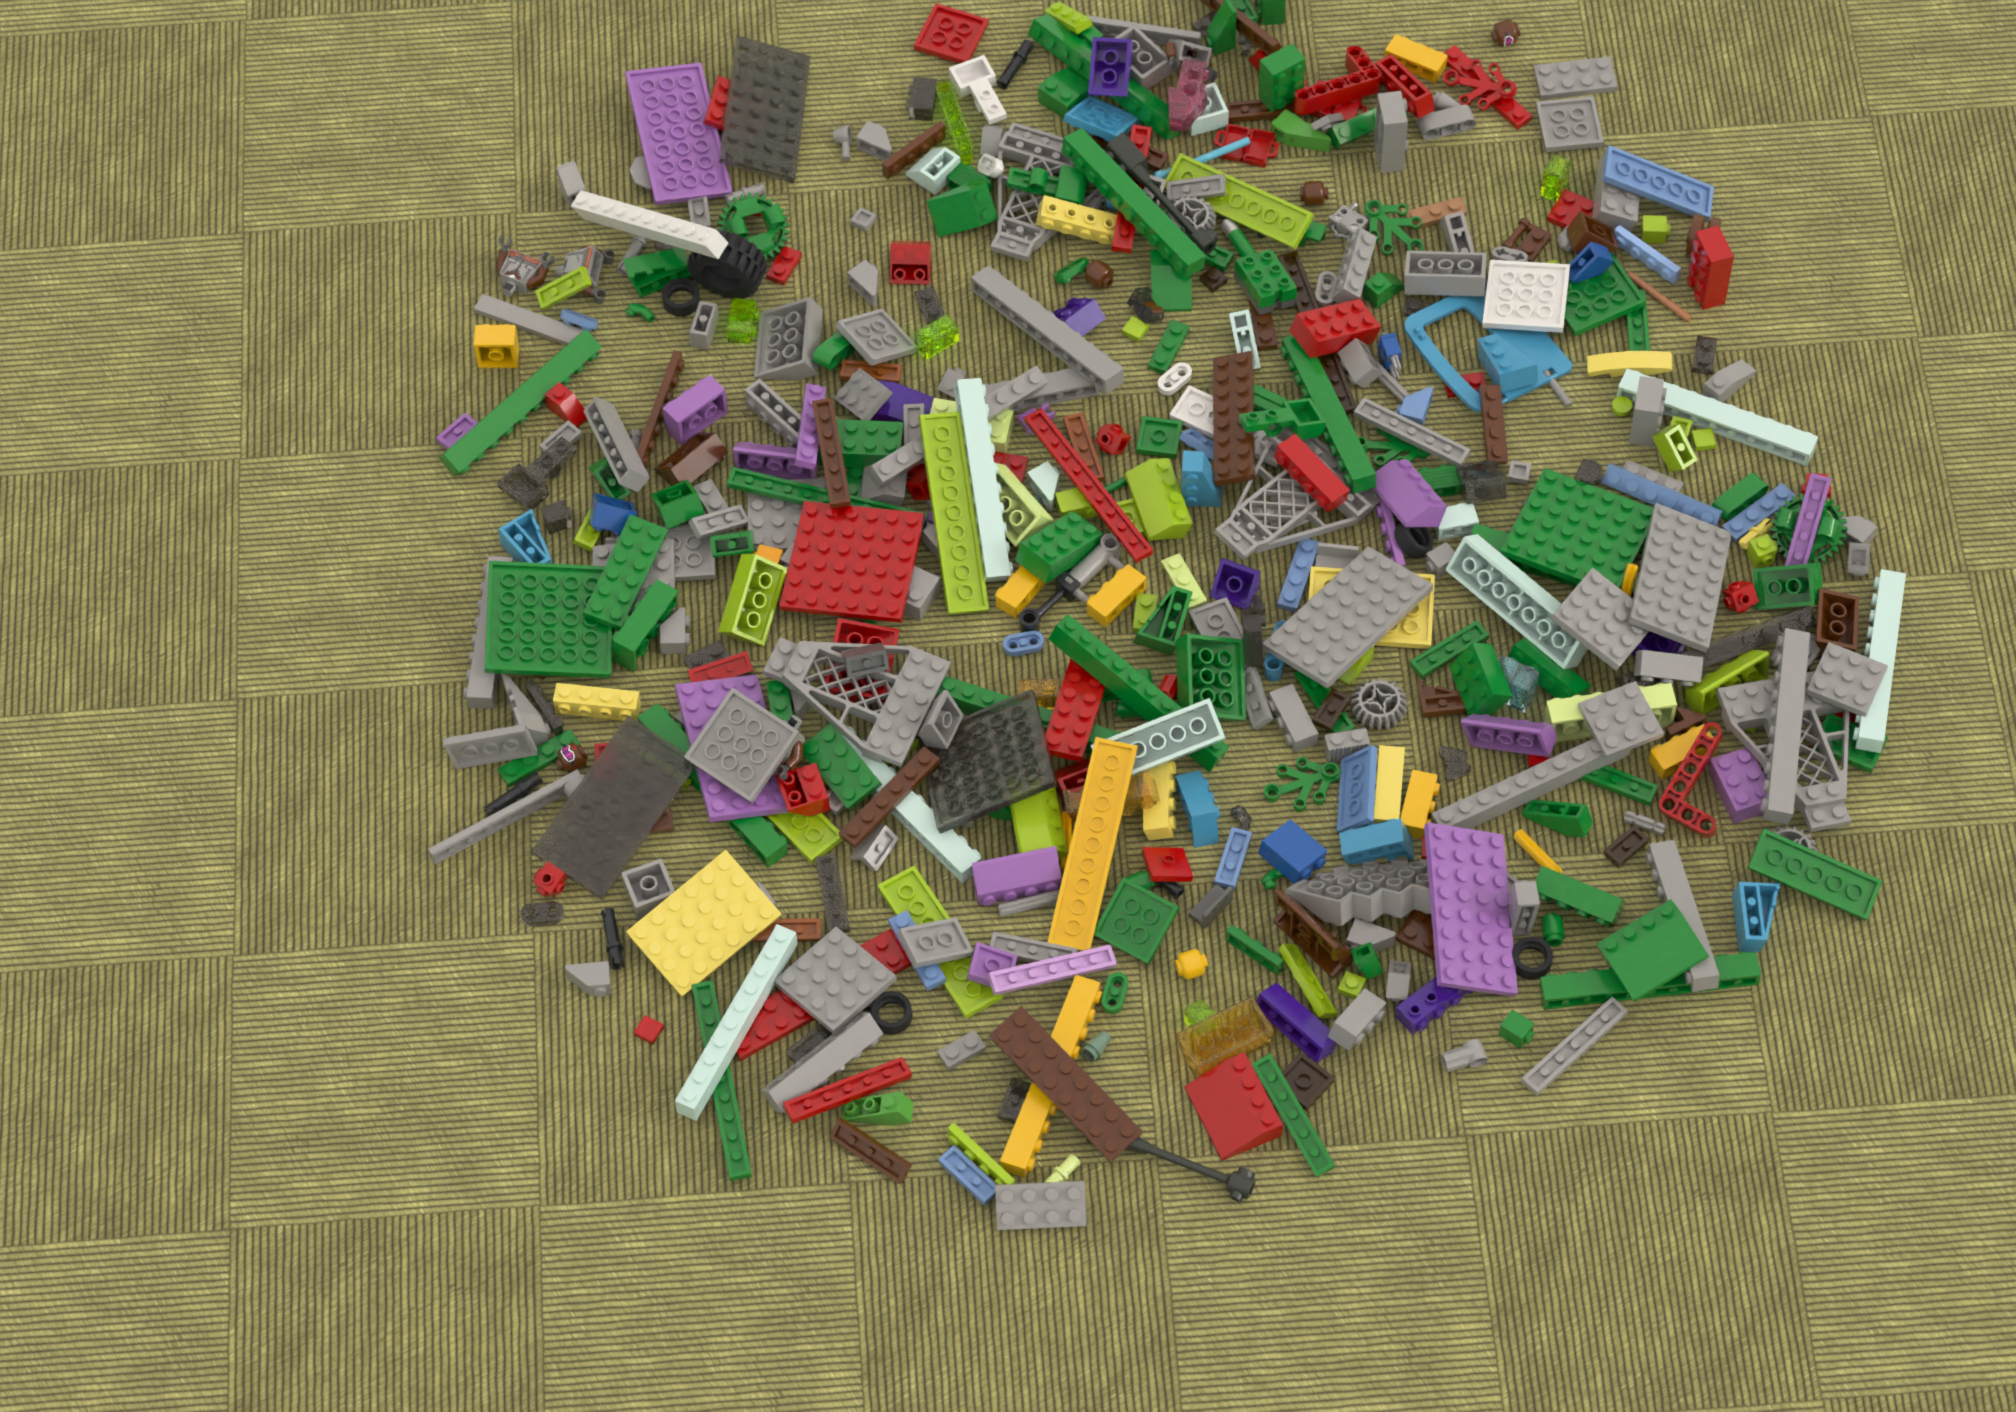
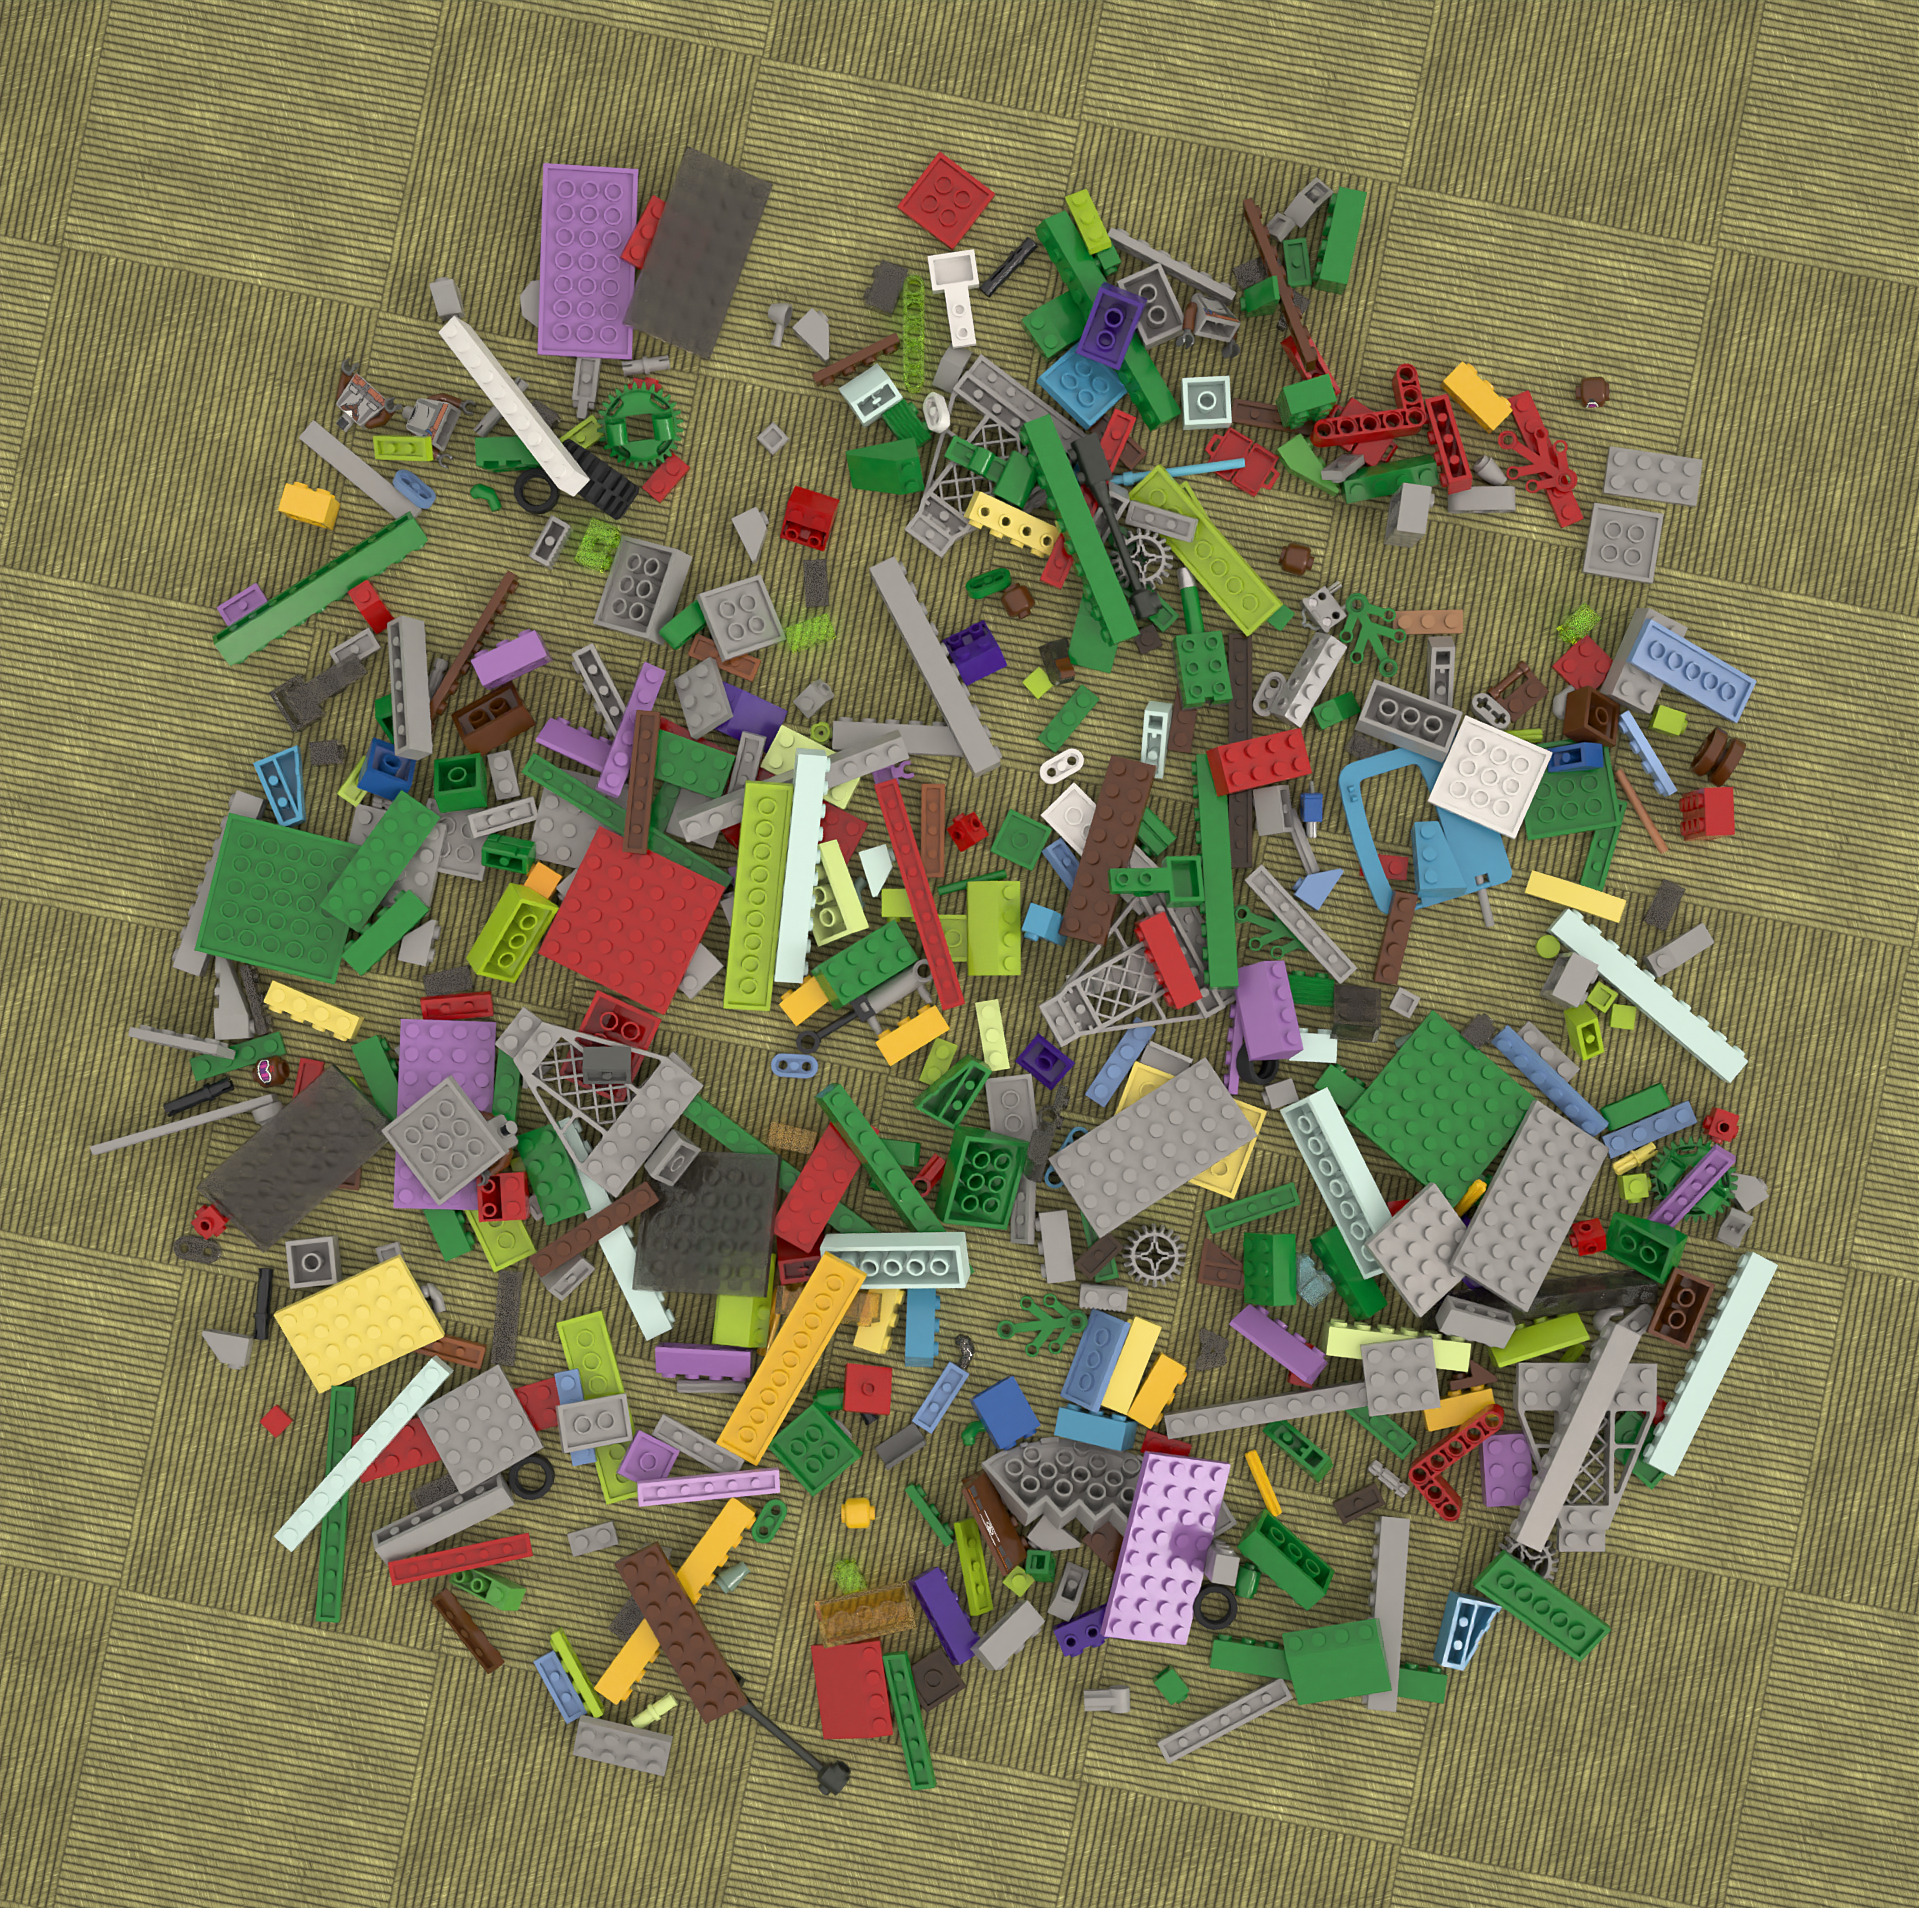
camera: 15 degrees right, 30 degrees up
(1189, 97) = (1179, 410): clear pink brick -> none
(1846, 679) = (1662, 1390): light grey plate -> none

